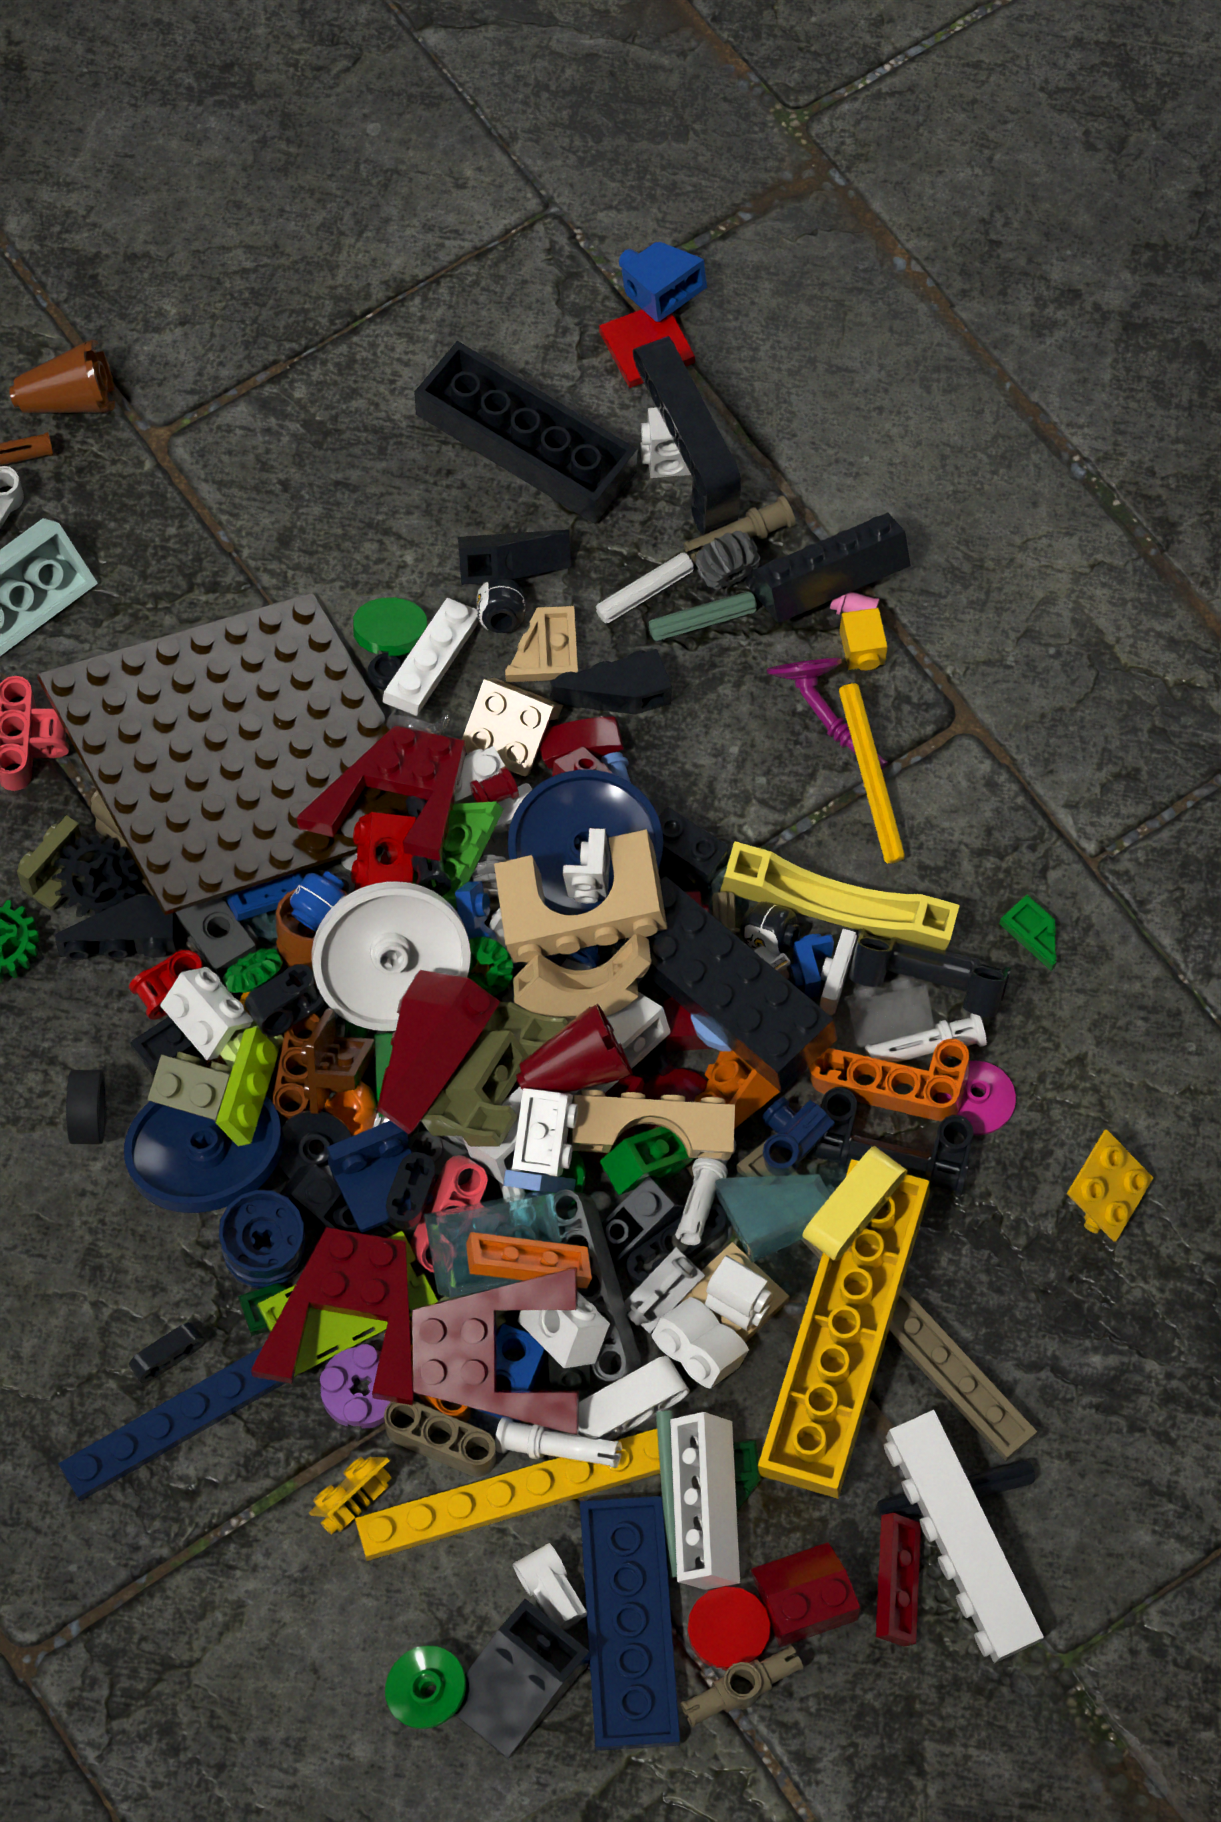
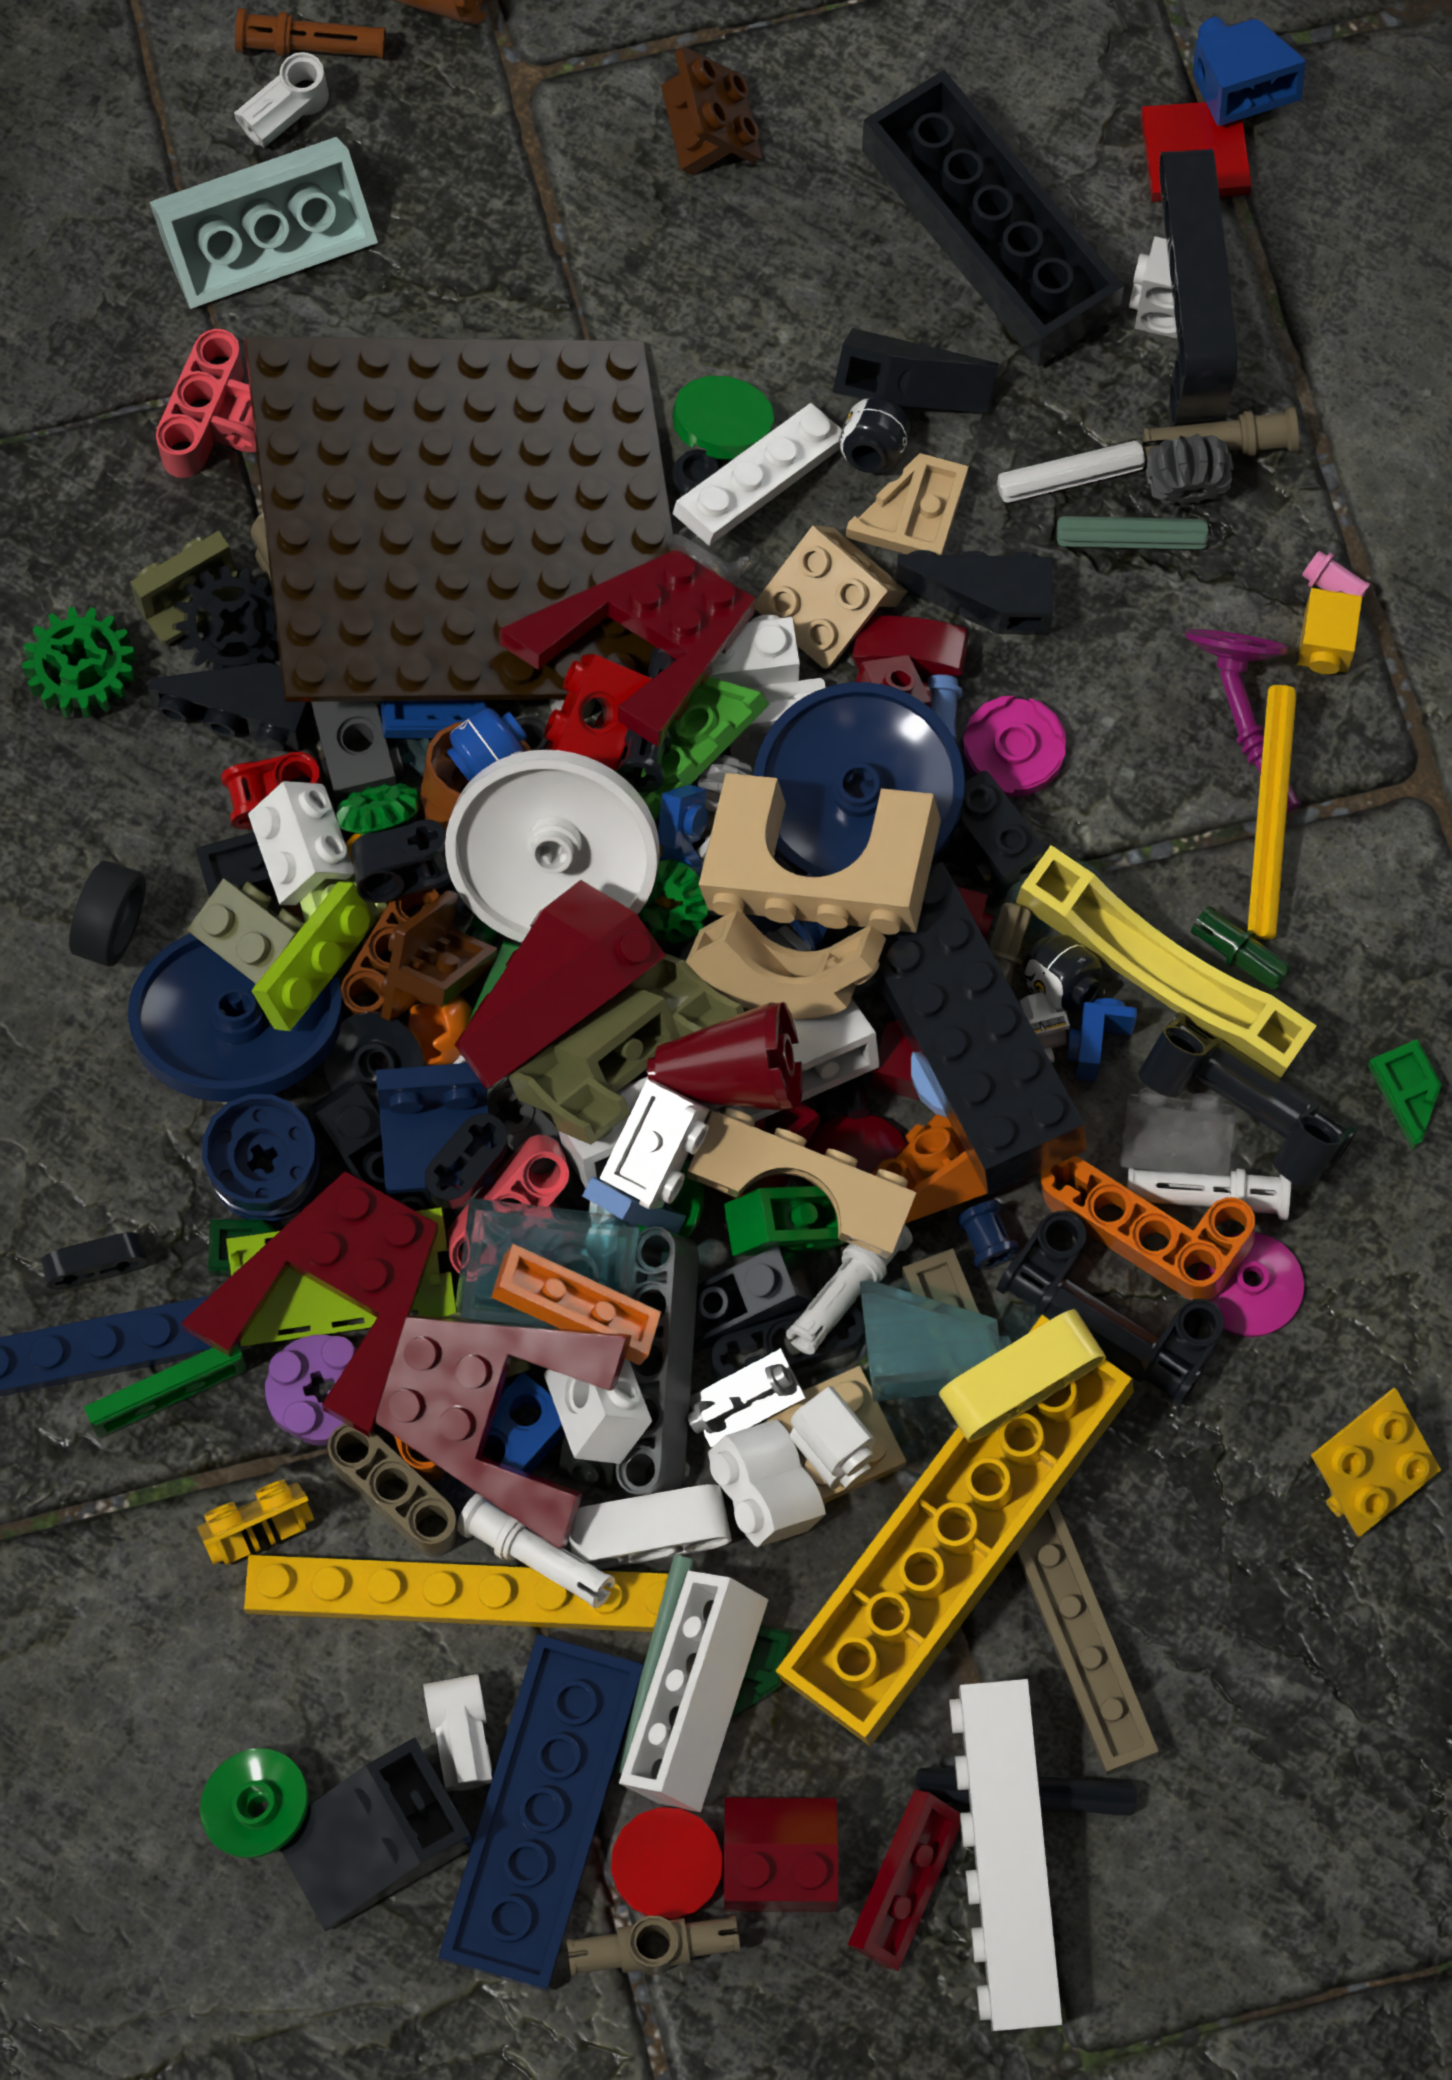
camera: 20 degrees right, 5 degrees up
(250, 1425) = (163, 1390): none -> green tile
(299, 421) = (709, 113): none -> reddish brown bracket
(495, 788) = (771, 673): dark red bush -> none
(591, 880) = (849, 832): white bracket -> none
(678, 782) = (1016, 743): none -> dark pink tile
(798, 1136) = (993, 1259): dark blue piece -> none
(831, 567) = (1320, 523): black slope -> none
(836, 970) = (1126, 1059): white plate -> none
(885, 872) = (1241, 948): none -> dark green axle

